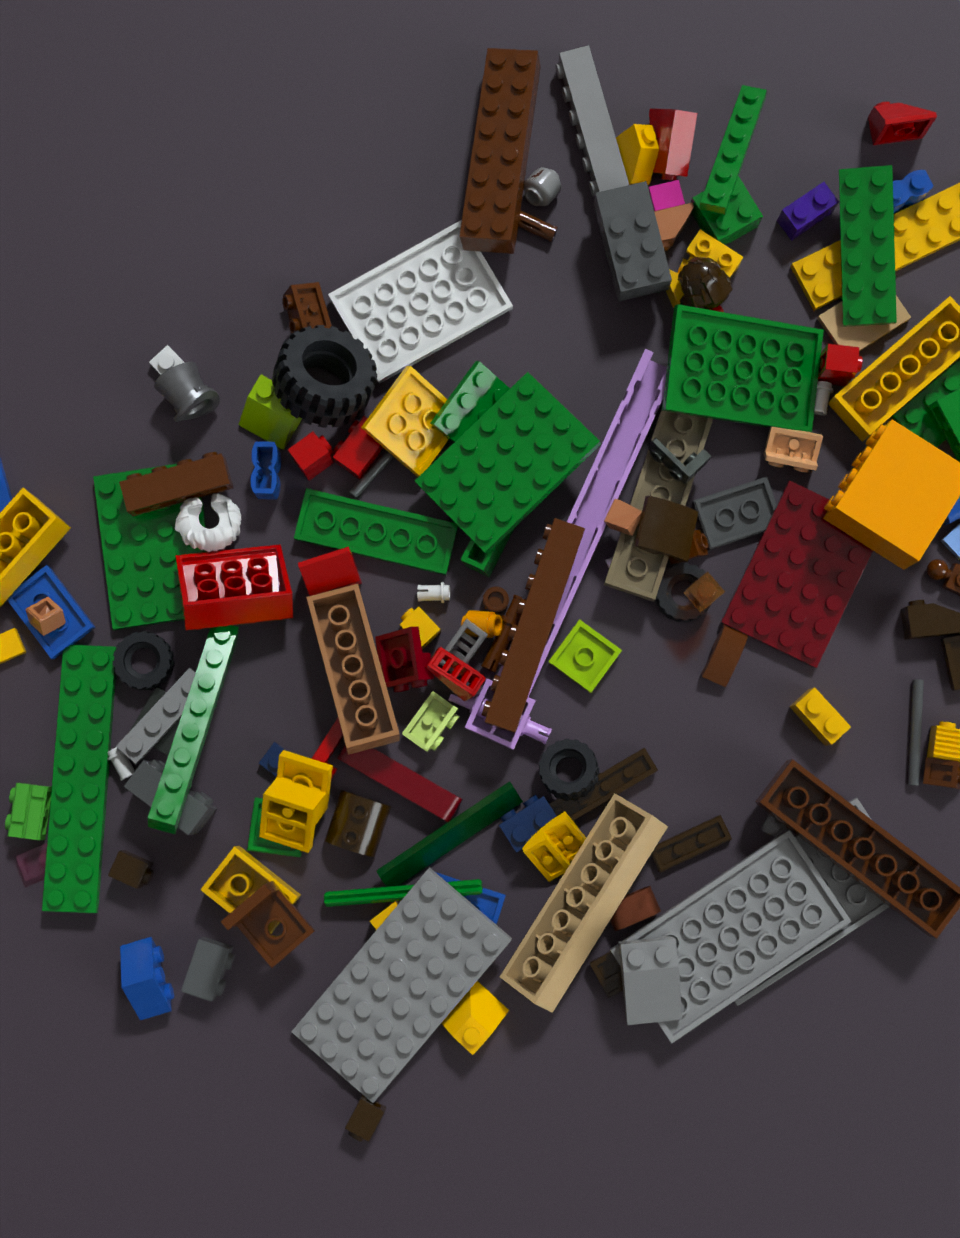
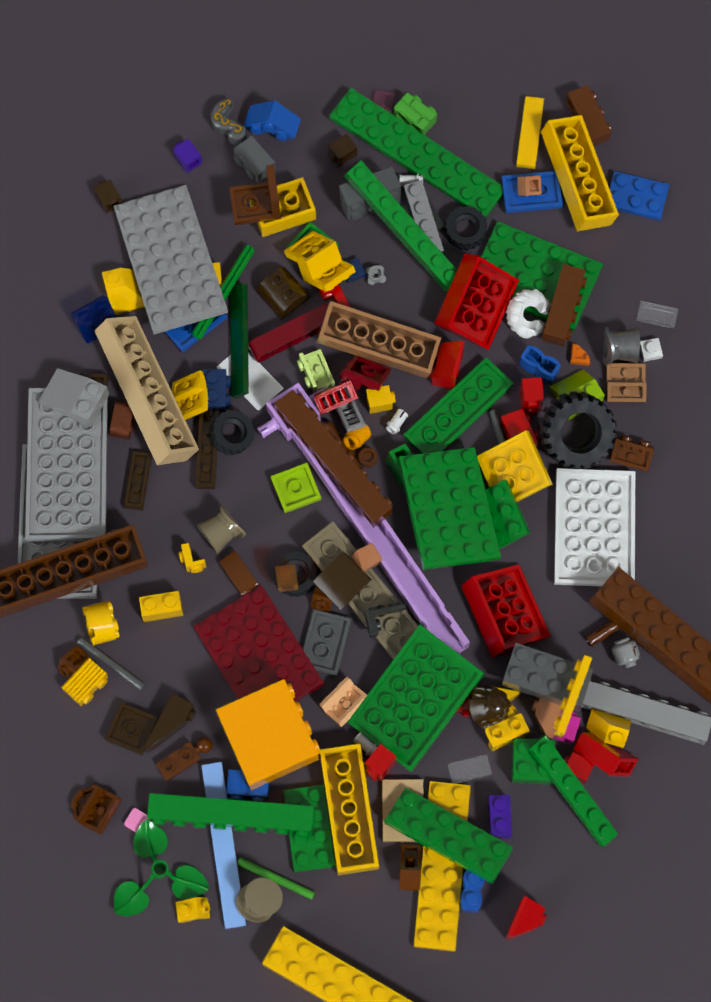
camera: 120 degrees right, 10 degrees down
(119, 381) = (657, 314): none -> clear tile
(184, 1034) = (226, 126): none -> dark grey animal
(224, 438) = (579, 356): none -> orange tile
(226, 366) = (626, 382): none -> medium nougat slope
(252, 1056) = (187, 155): none -> dark purple brick
(267, 737) = (379, 270): none -> light grey plate
(483, 777) = (261, 383): none -> white sticker
(531, 1026) = (92, 316): none -> clear blue bracket
(578, 340) = (505, 610): none -> red slope
(638, 192) = (568, 704): none -> yellow plate
(692, 706) = (221, 529): none -> dark tan hat
(701, 163) = (580, 766): none -> red brick
(744, 726) = (186, 557): none -> yellow bracket
(774, 276) = (469, 769): none -> clear tile
(886, 770) = (101, 622): none -> yellow brick
(921, 271) = (410, 867): none -> reddish brown slope

